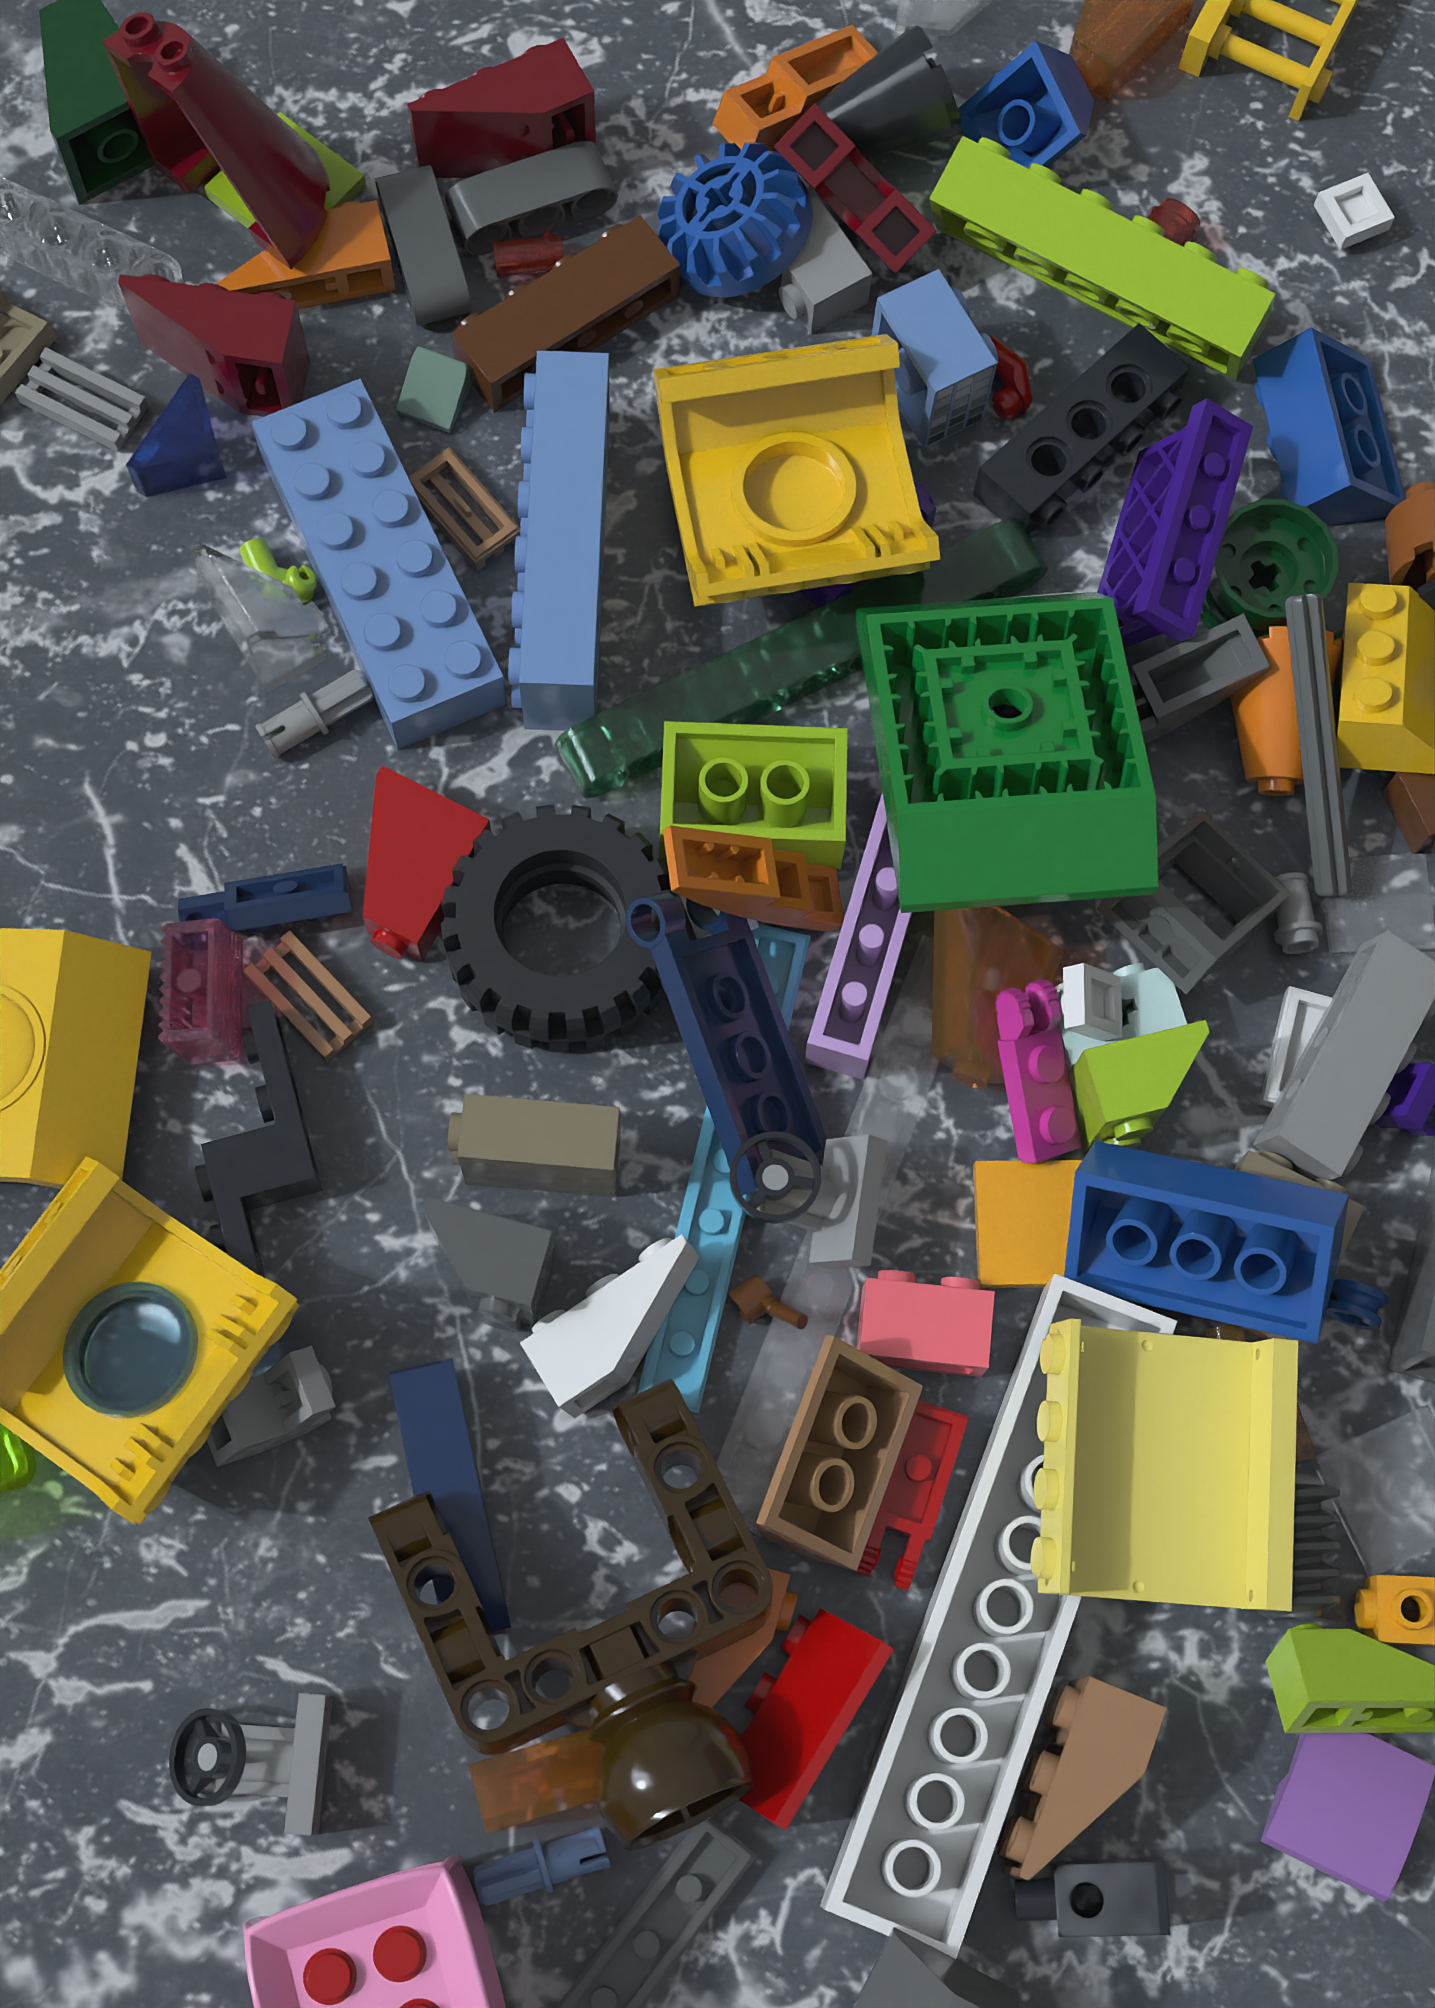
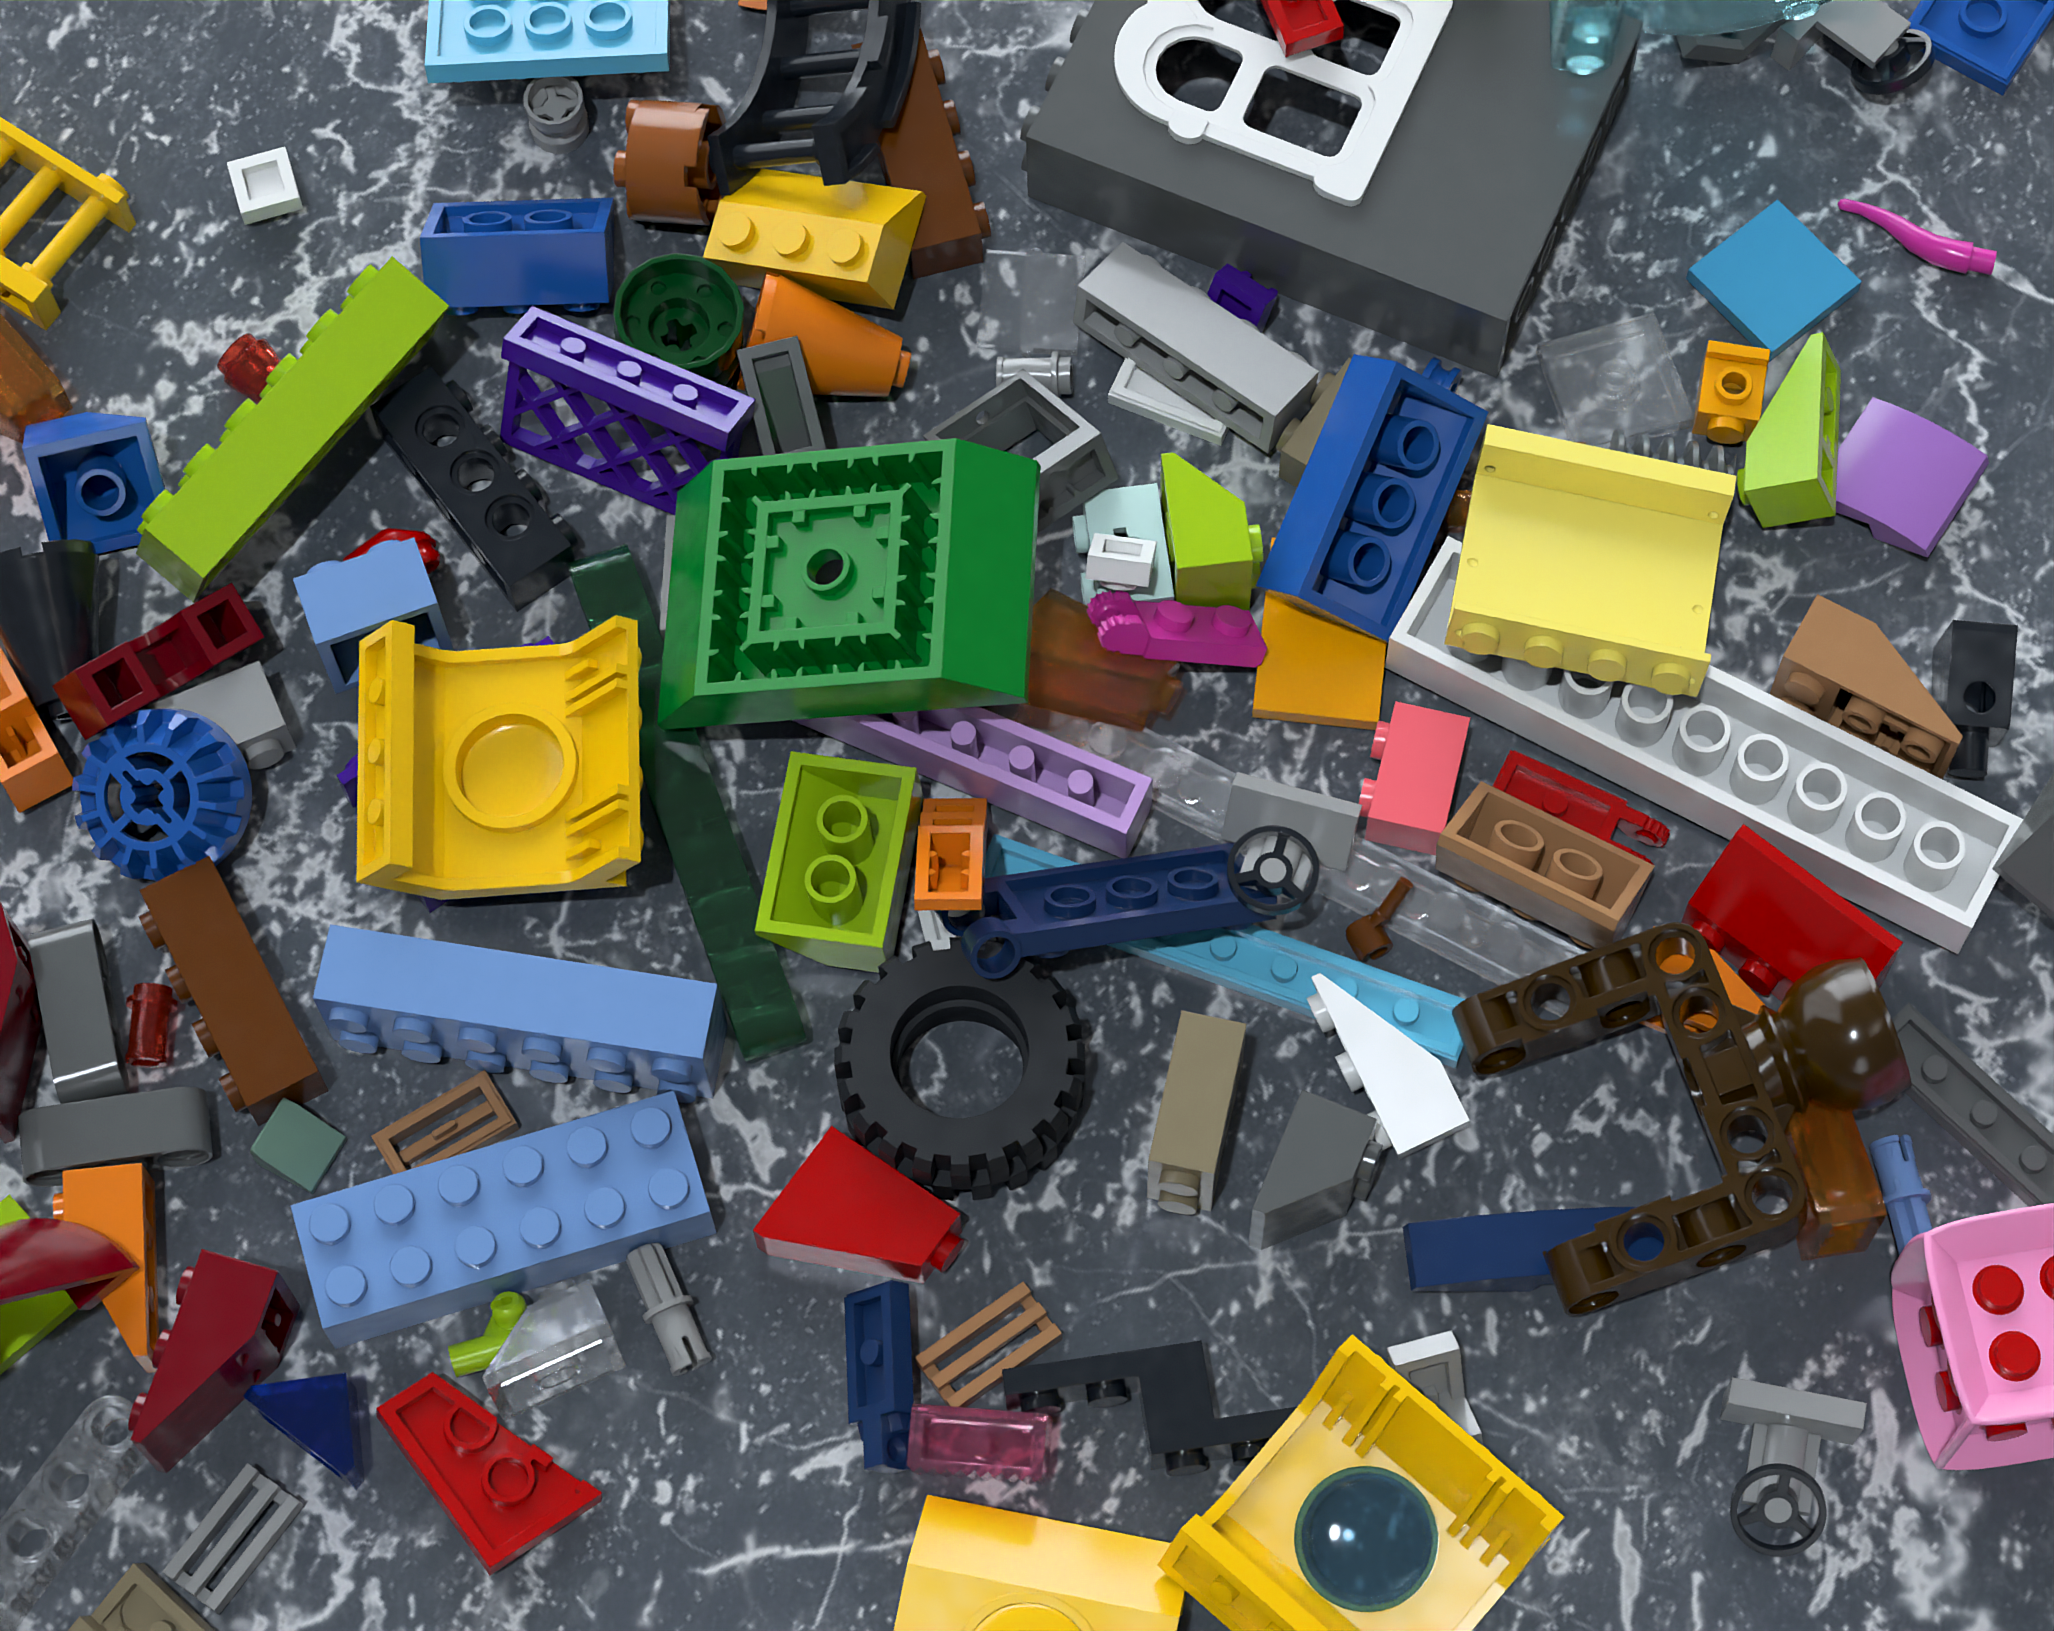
camera: 75 degrees left, 5 degrees down
(149, 584) = (481, 1474): none -> red wing
(1318, 744) = (878, 311): dark grey axle -> none

